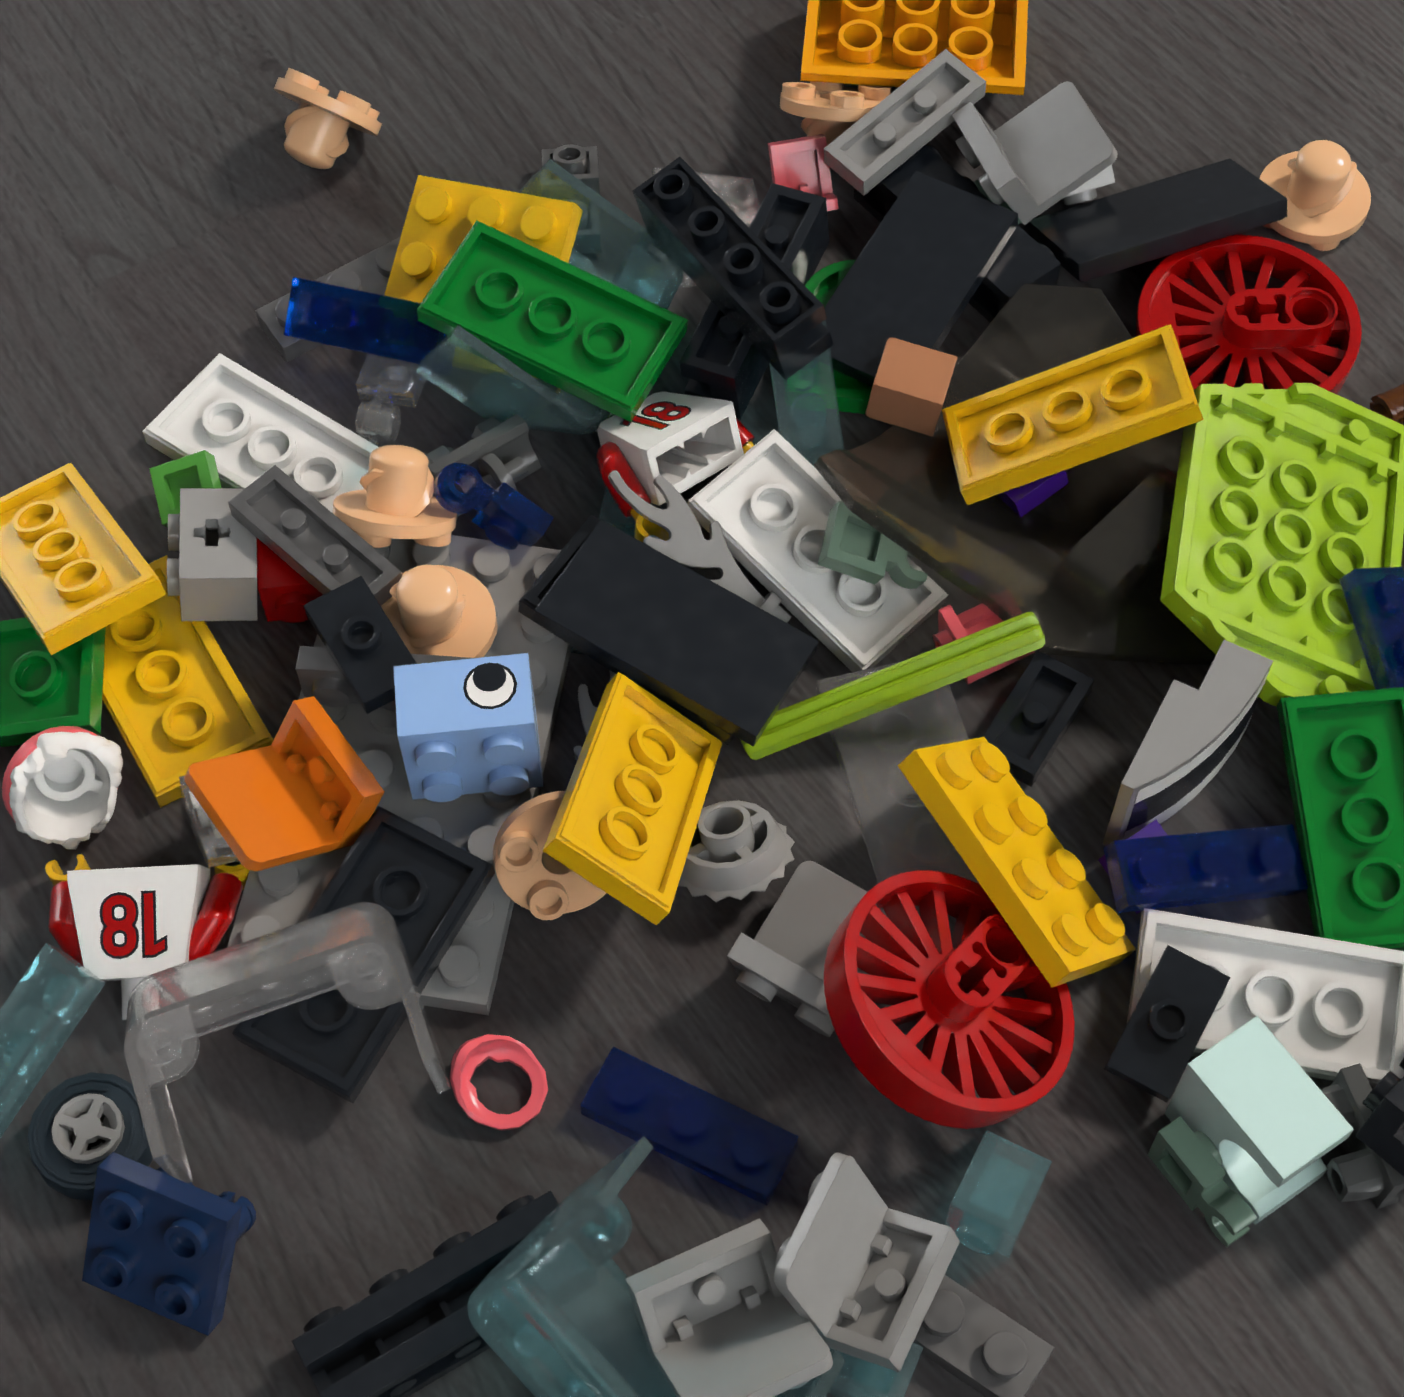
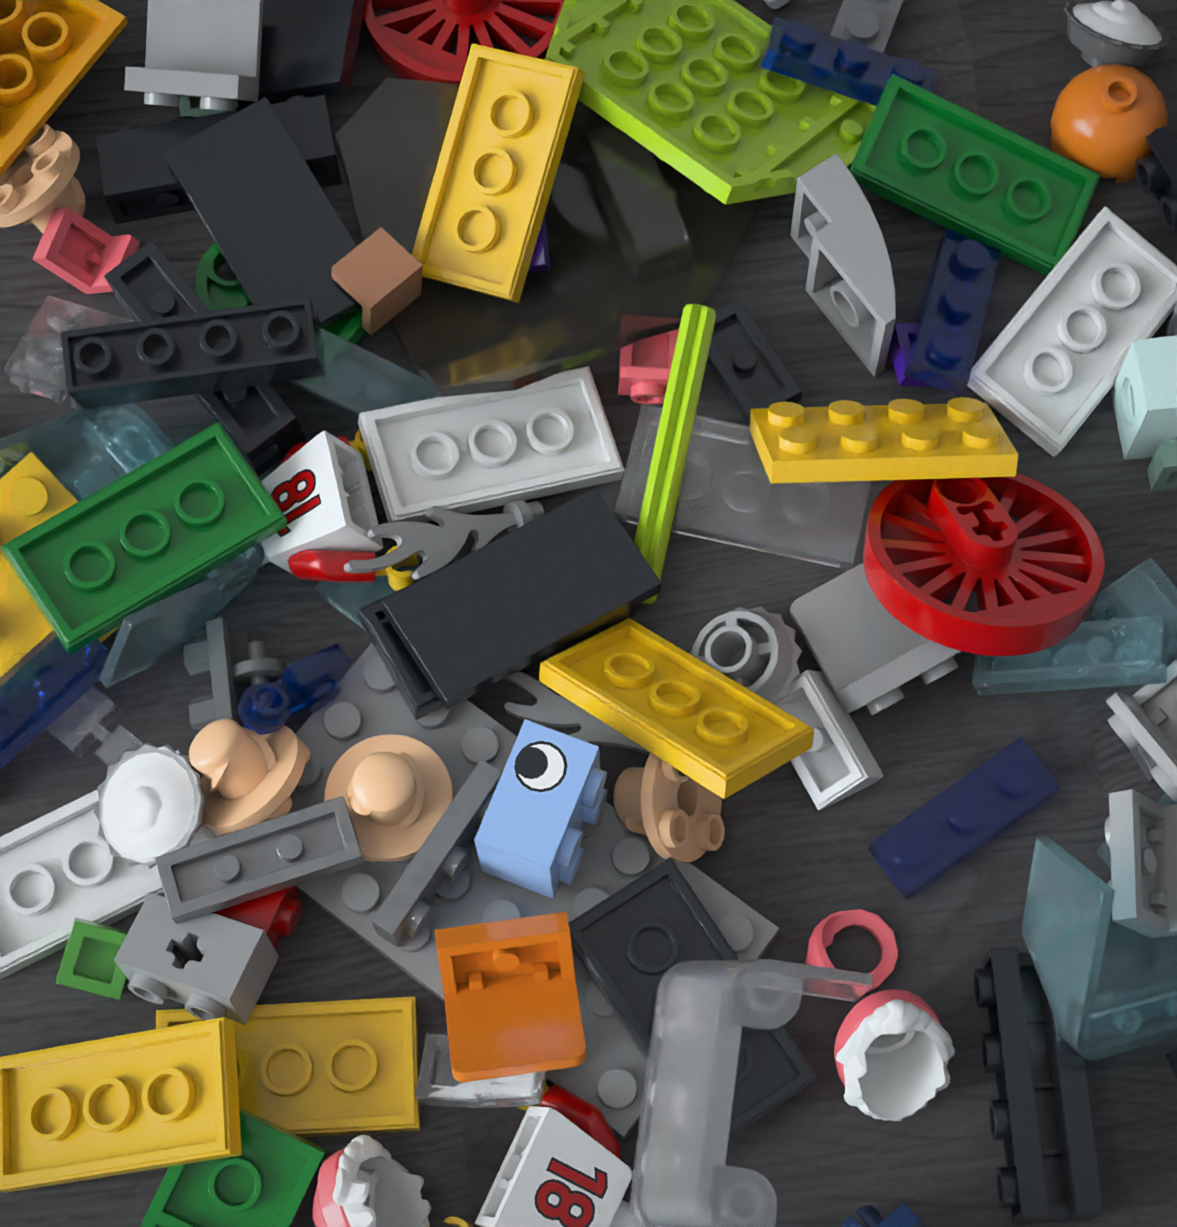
camera: 60 degrees left, 10 degrees up
(329, 451) = (149, 804): none -> white piece
(360, 641) = (409, 861): black plate -> none
(402, 1152) = (892, 1055): none -> white hair
(692, 967) = (839, 756): none -> white slope
(864, 552) = (526, 410): sand green plate -> none
(903, 122) = (103, 132): light grey plate -> none
(908, 1151) = (1091, 657): none -> clear light blue plate
(1167, 1023) = (1070, 413): black plate -> none

